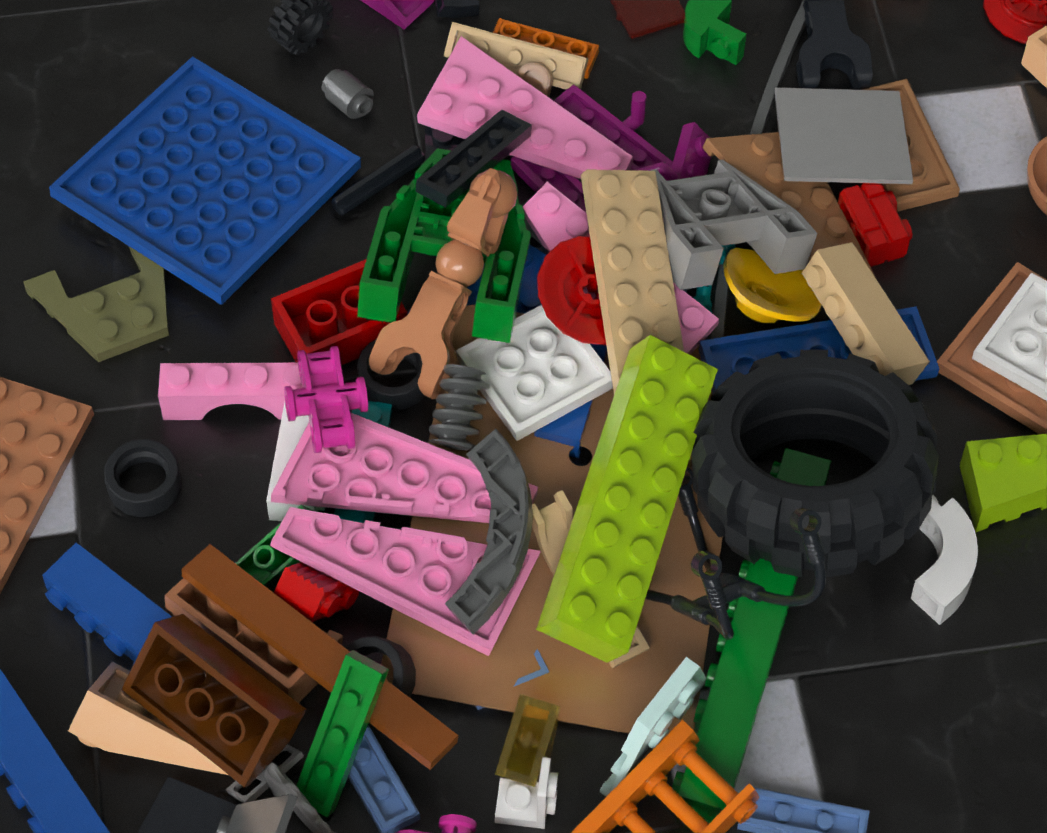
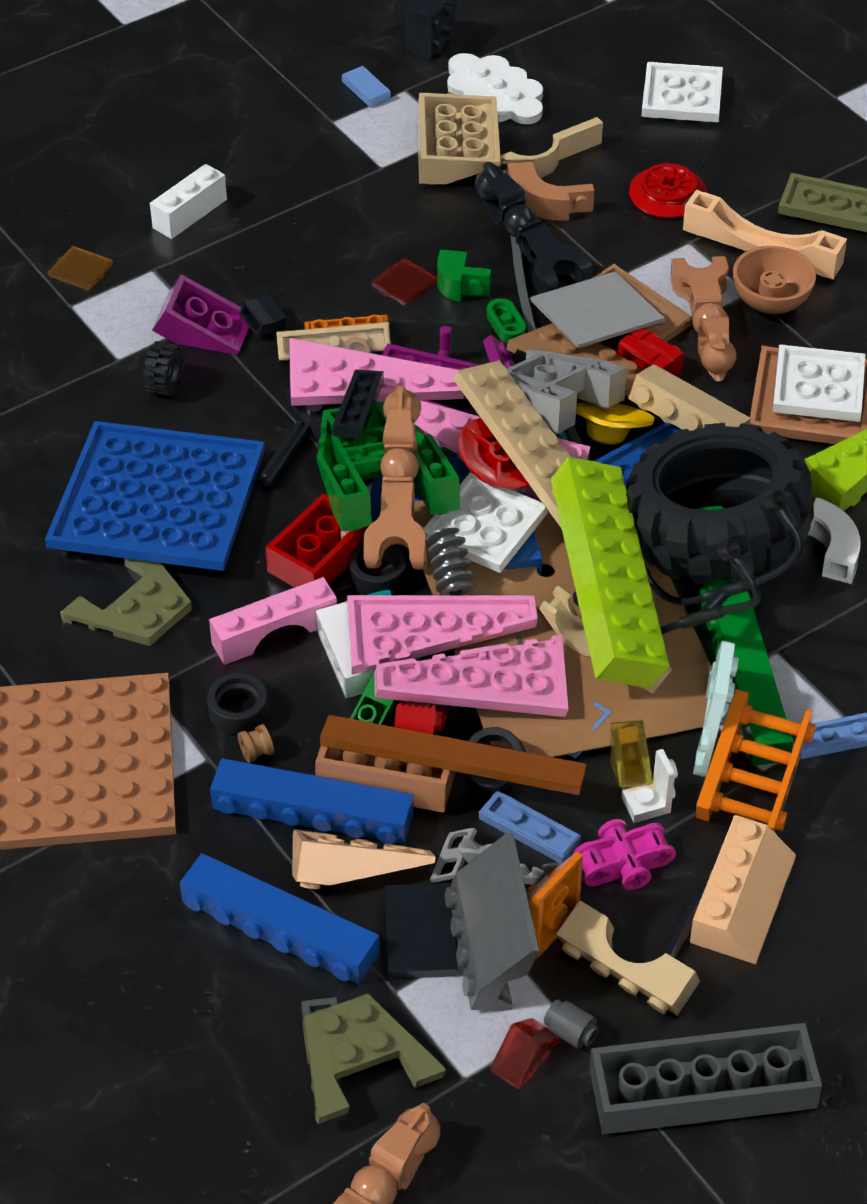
camera: 25 degrees left, 10 degrees down
(131, 537) = (255, 743): none -> medium nougat wheel
(212, 698) = (394, 813): reddish brown slope -> none
(326, 399) = (357, 590): dark pink axle -> none
(341, 731) = (502, 784): green plate -> none
(348, 93) = (226, 405): dark grey brick -> none
(506, 537) = (538, 622): dark grey tile -> none
(731, 109) = (505, 319): none -> green plate
(973, 202) = (703, 291): none -> nougat piece

